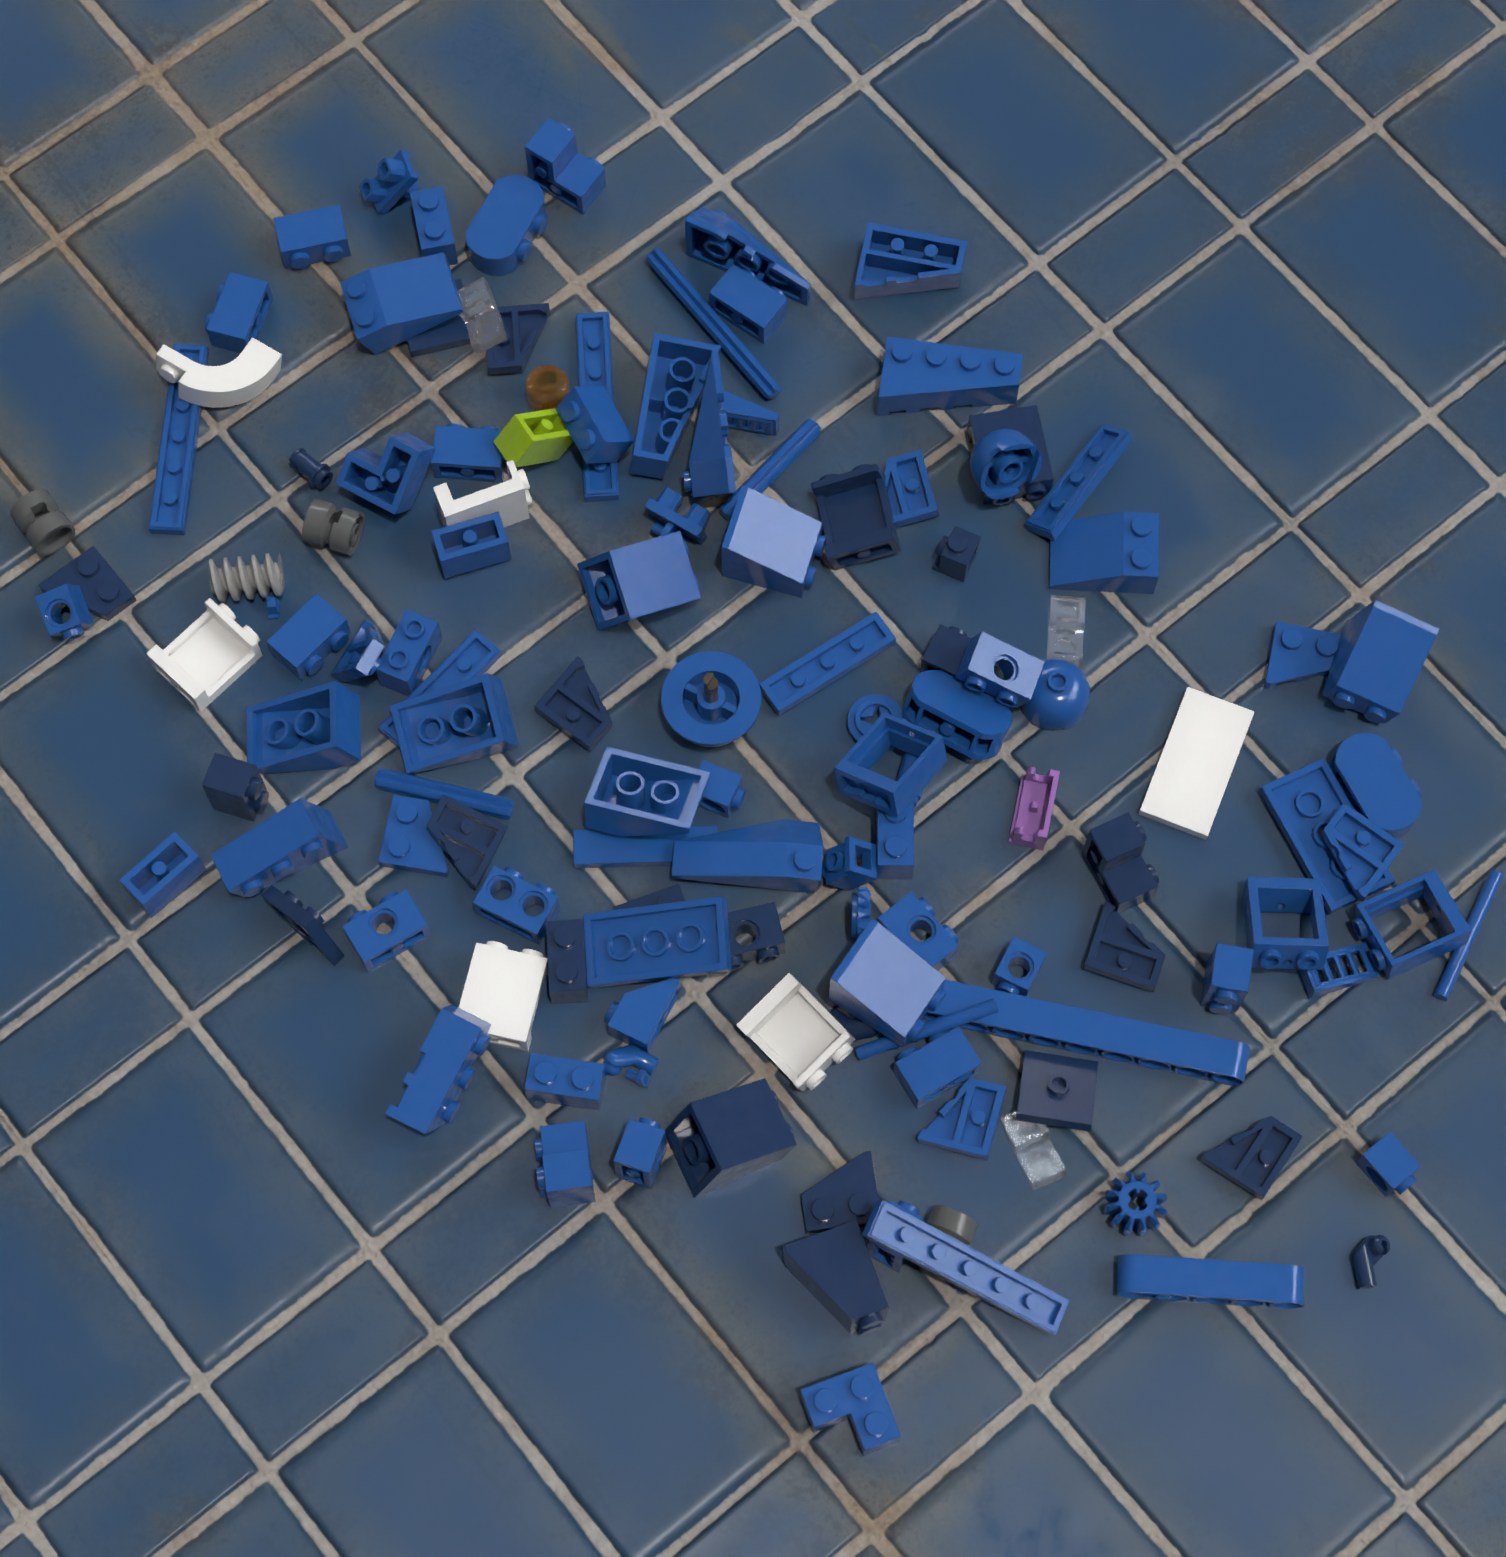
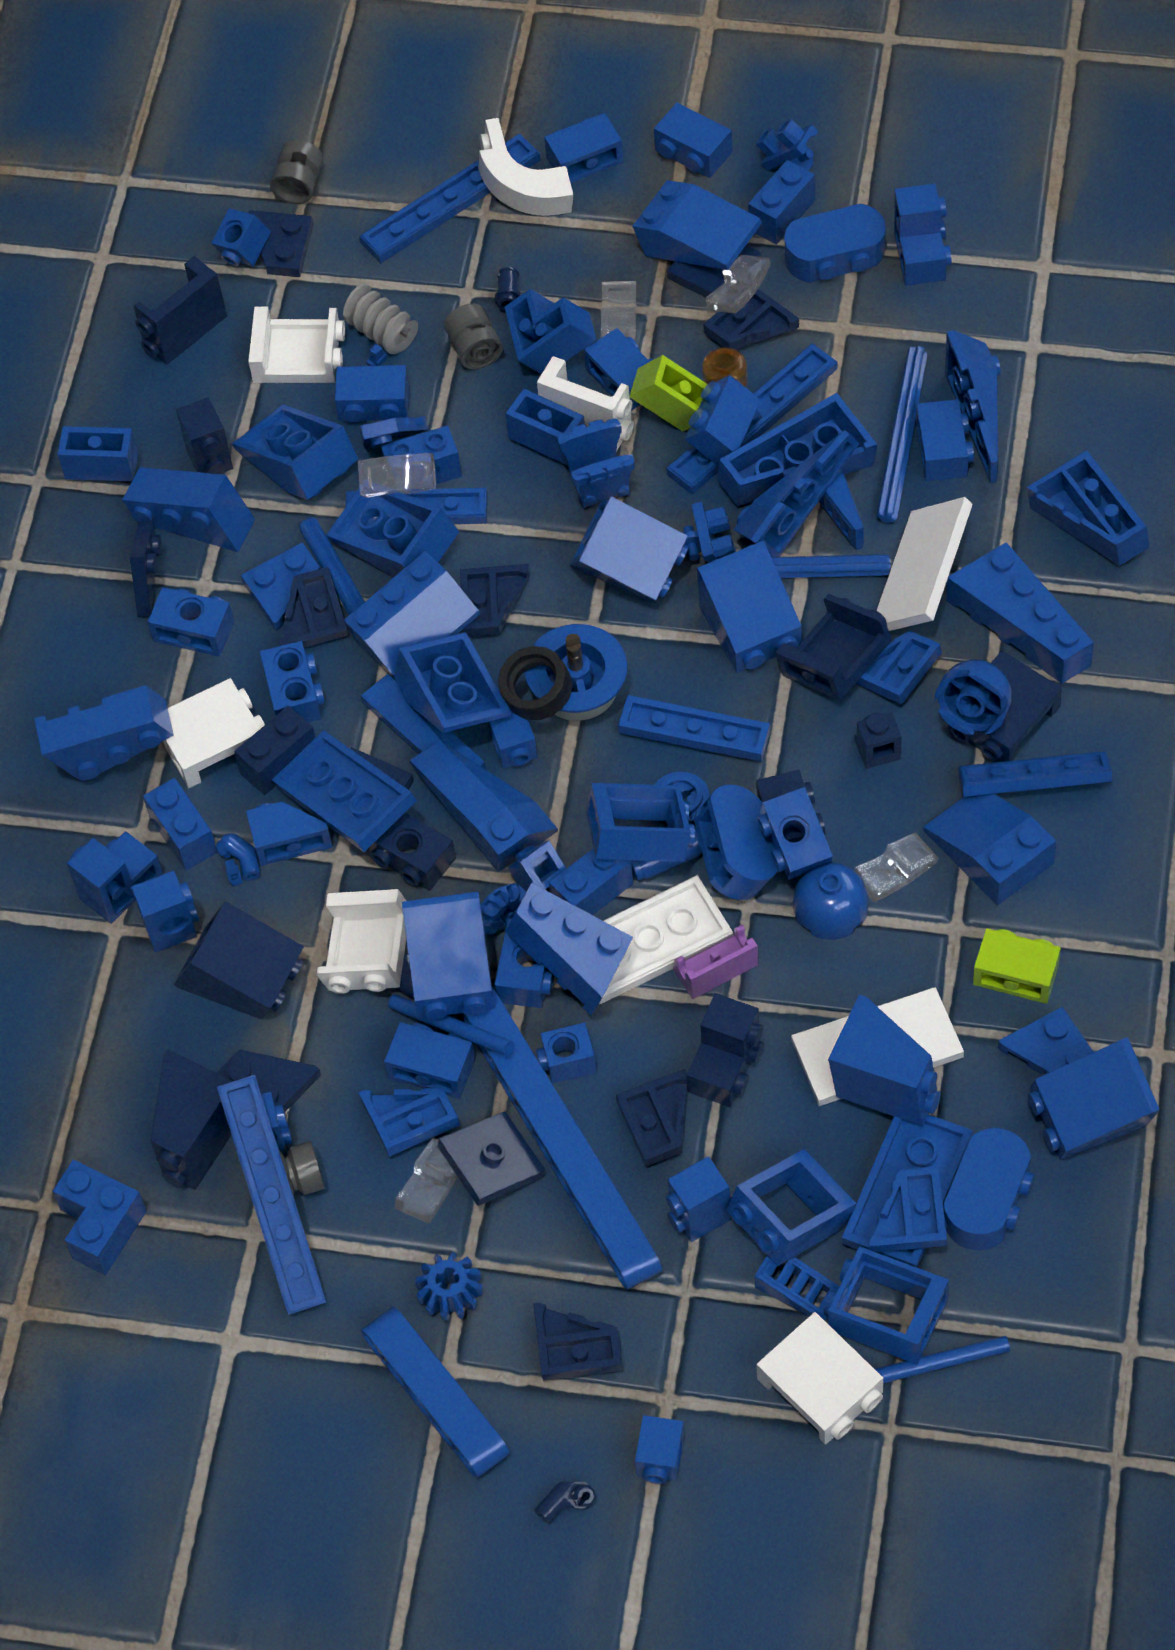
camera: 55 degrees right, 10 degrees down
(96, 680) = (183, 316): none -> dark blue panel
(409, 412) = (619, 307): none -> clear slope
(419, 679) = (397, 474): none -> clear slope
(528, 533) = (594, 462): none -> blue piece
(548, 772) = (409, 610): none -> blue slope
(699, 708) = (520, 663): none -> black tyre
(845, 402) = (923, 563): none -> white tile
(949, 892) = (569, 943): none -> wedge
(970, 839) = (664, 928): none -> white tile
(1220, 620) = (1016, 965): none -> lime brick
(1240, 768) = (883, 1066): none -> blue slope
(1426, 1013) = (822, 1377): none -> white panel

